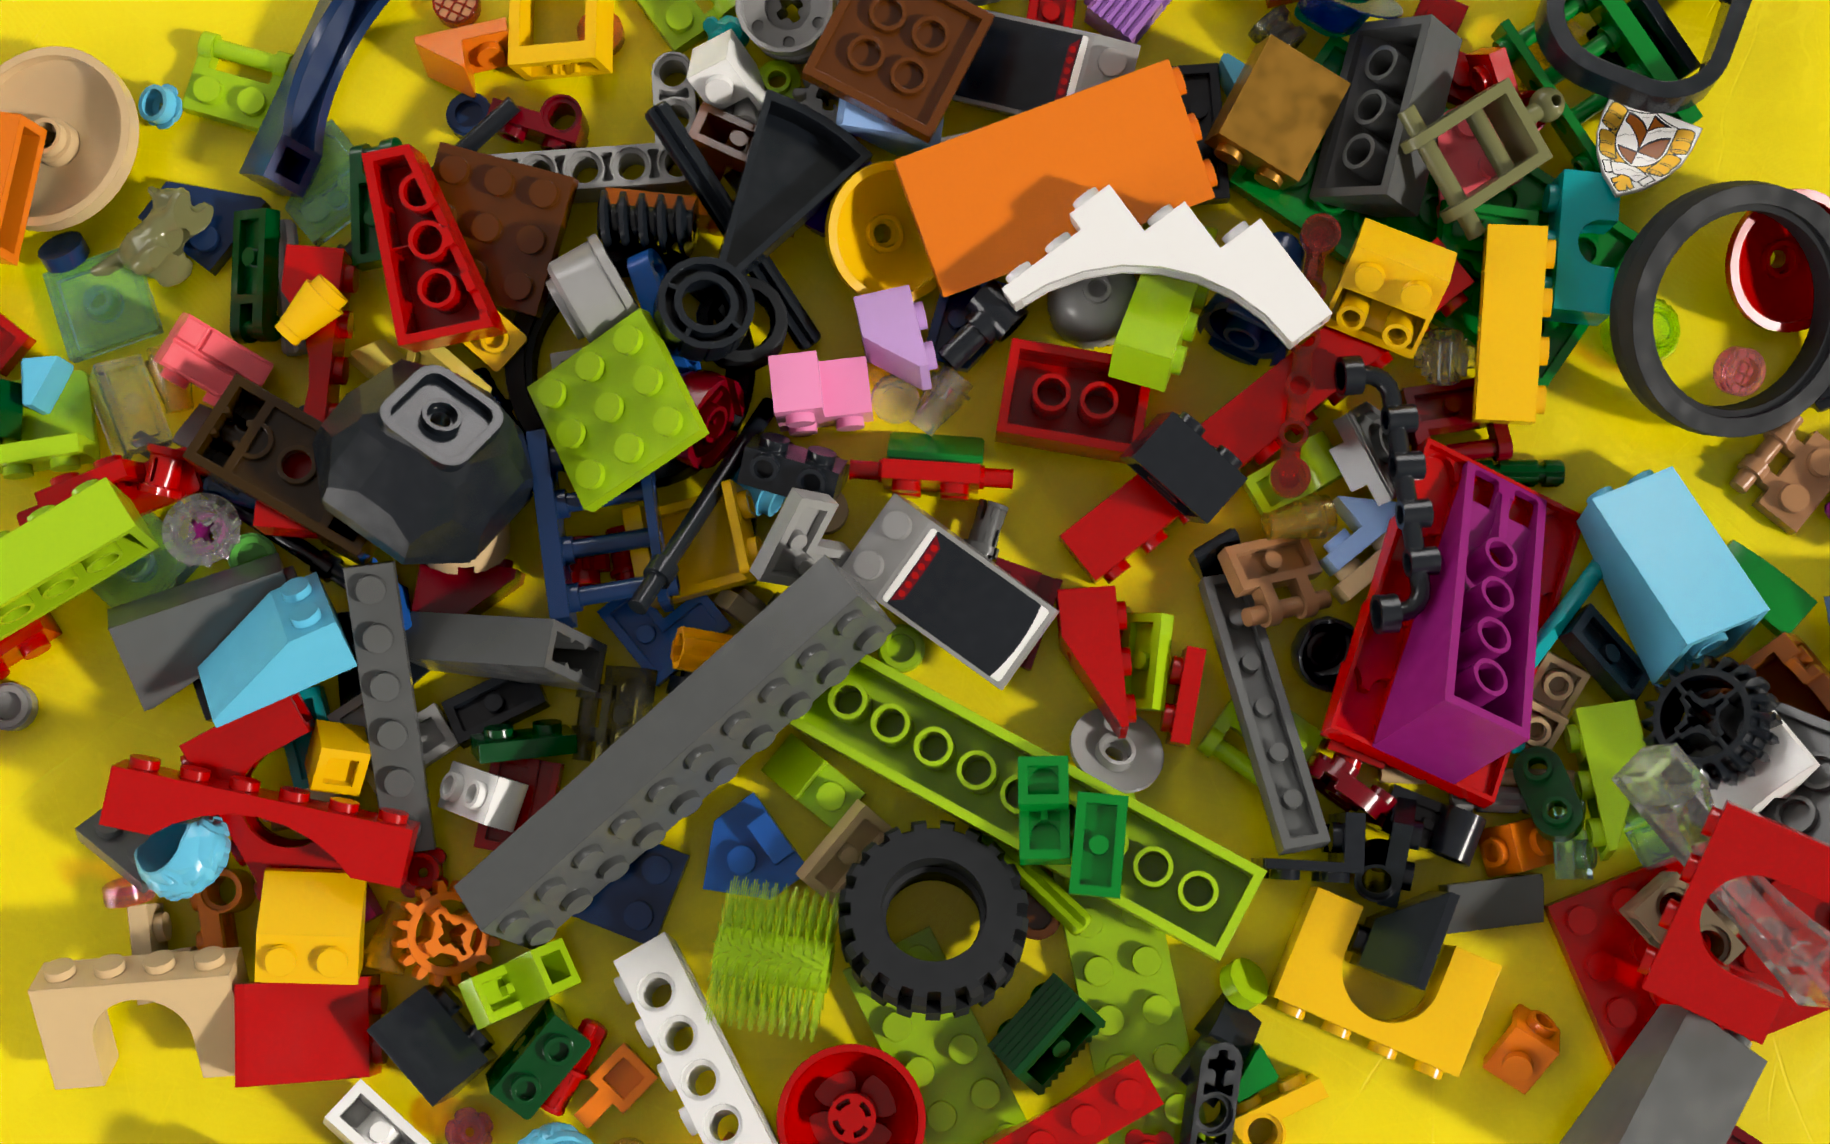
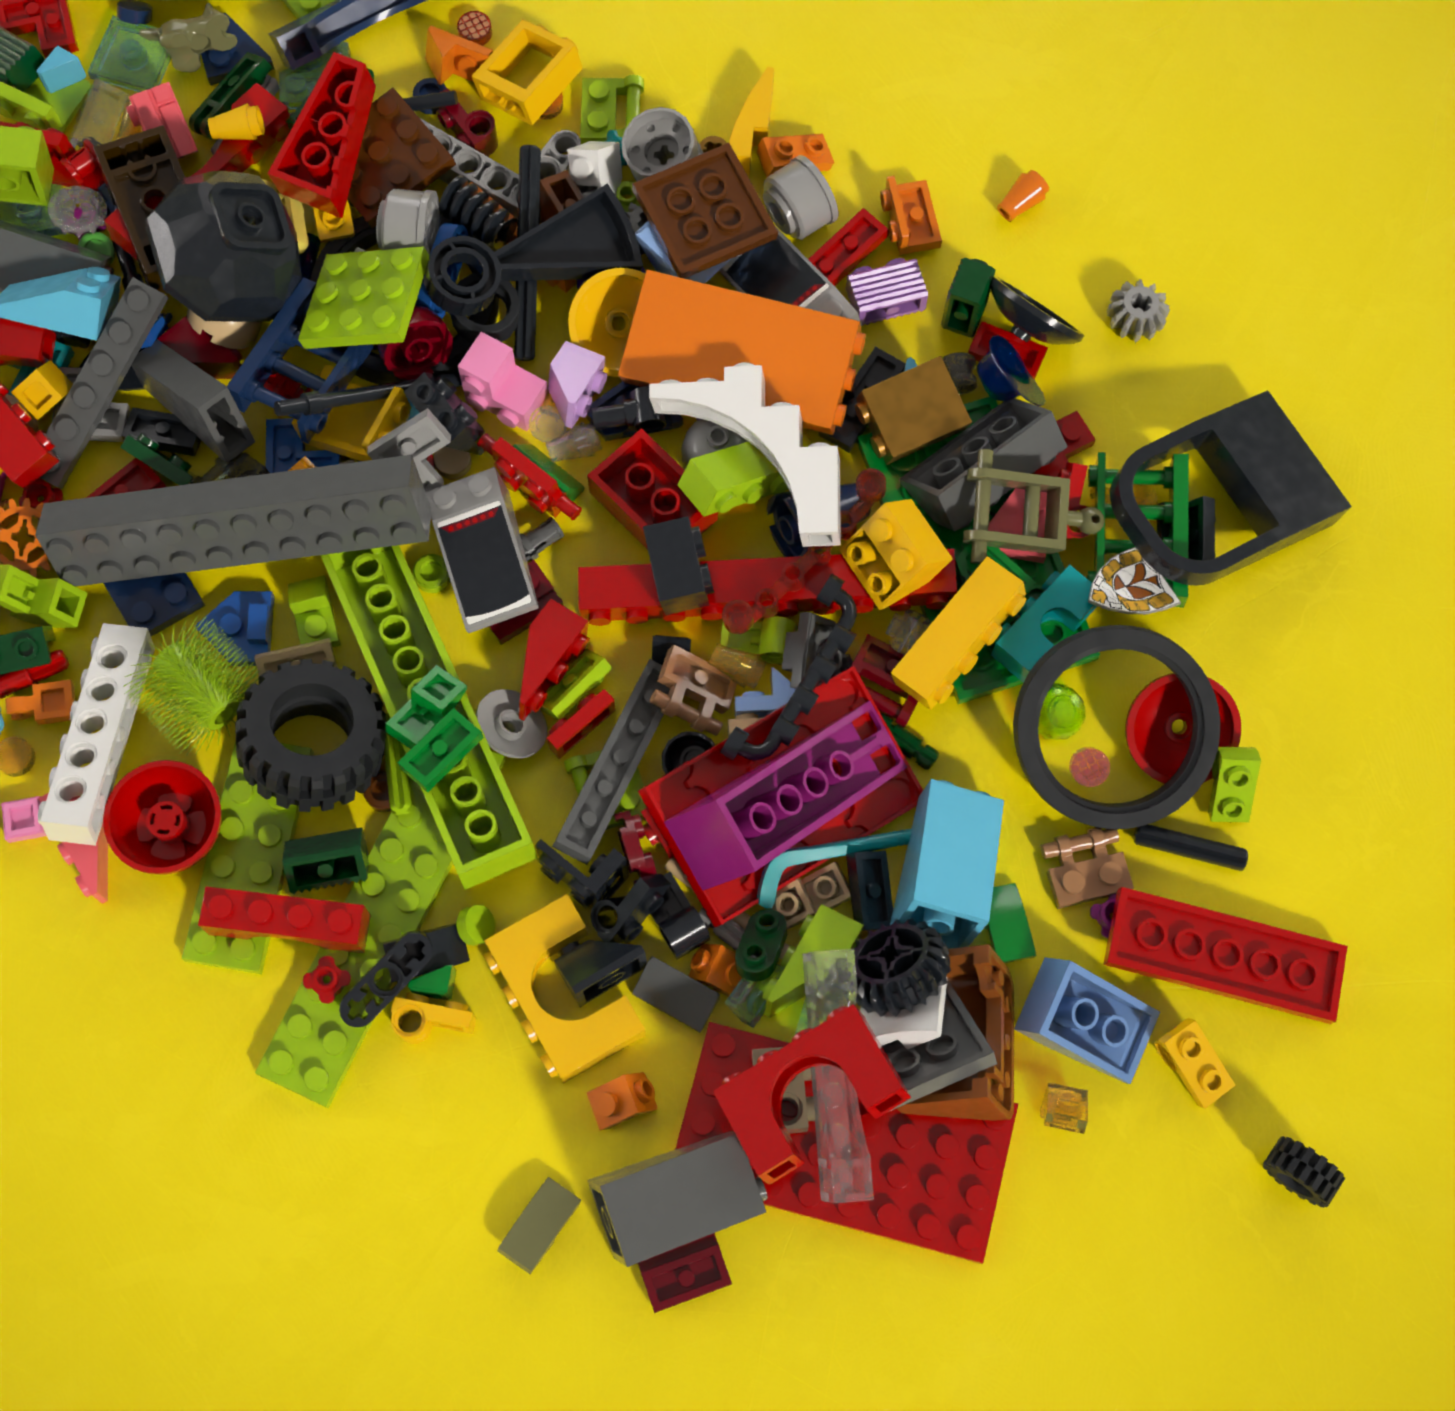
camera: 30 degrees right, 10 degrees down
(482, 796) = (109, 473): white plate -> none

